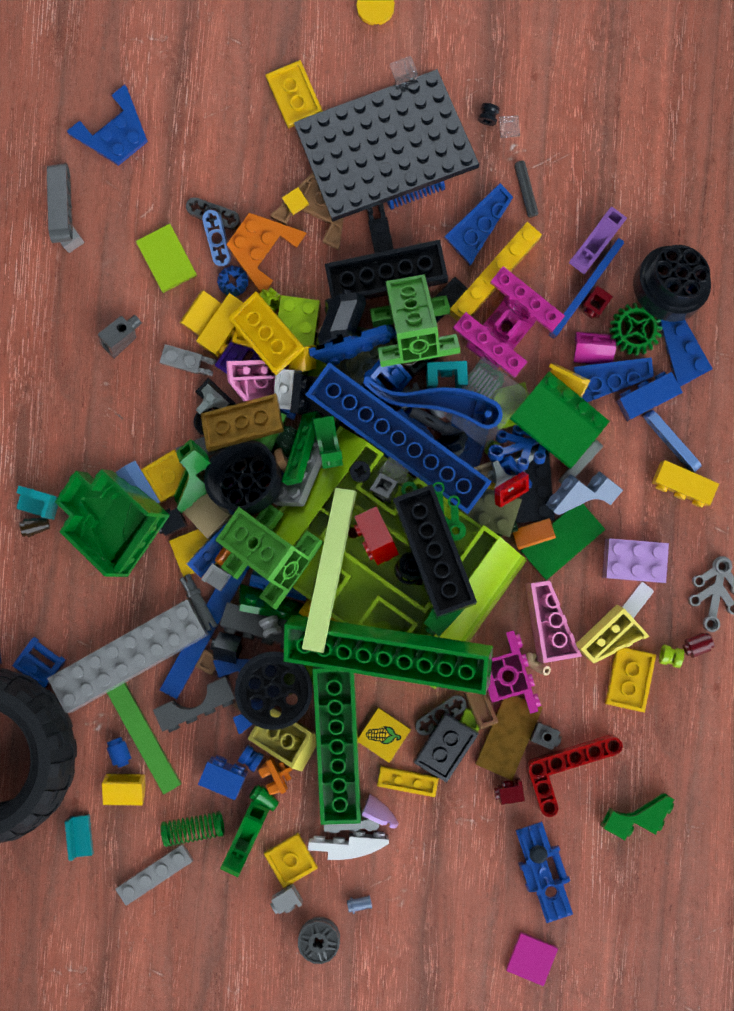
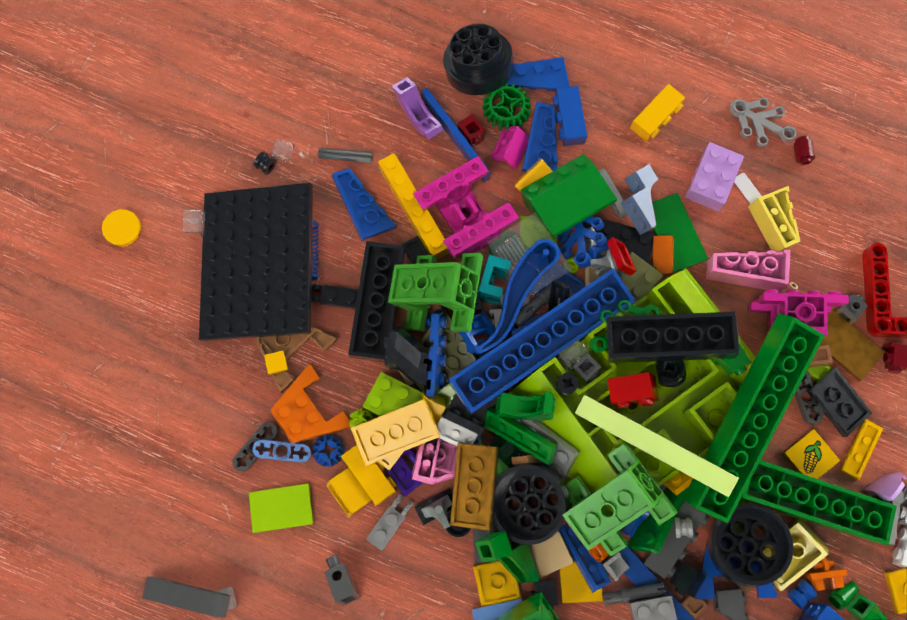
camera: 80 degrees left, 10 degrees down
(120, 136) = (142, 513): blue wing -> none
(293, 93) = (170, 330): yellow tile -> none
(630, 679) = (819, 218): yellow tile -> none
(671, 656) = (807, 177): lime wheel -> none
(672, 441) = (616, 110): medium blue beam -> none

